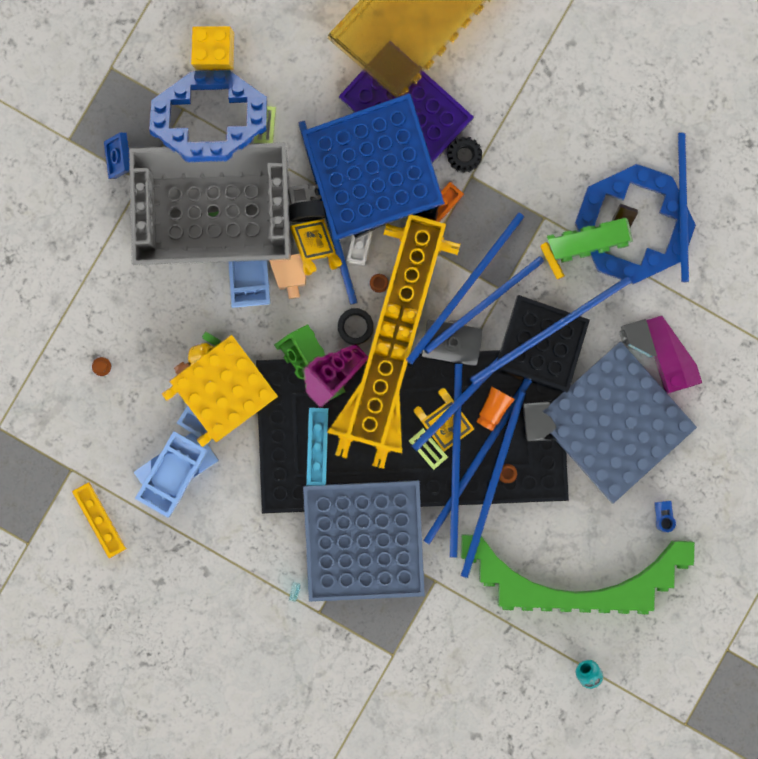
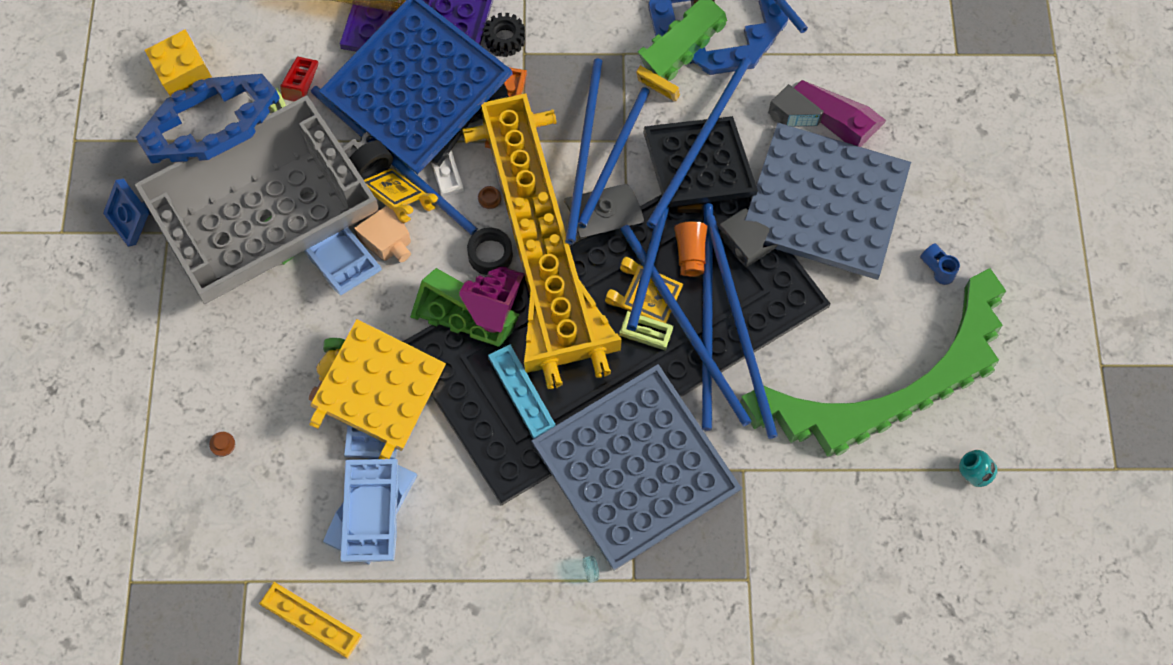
camera: 30 degrees left, 20 degrees down
(284, 118) = (293, 91): none -> red slope
(508, 473) = (750, 308): dark orange plate -> none

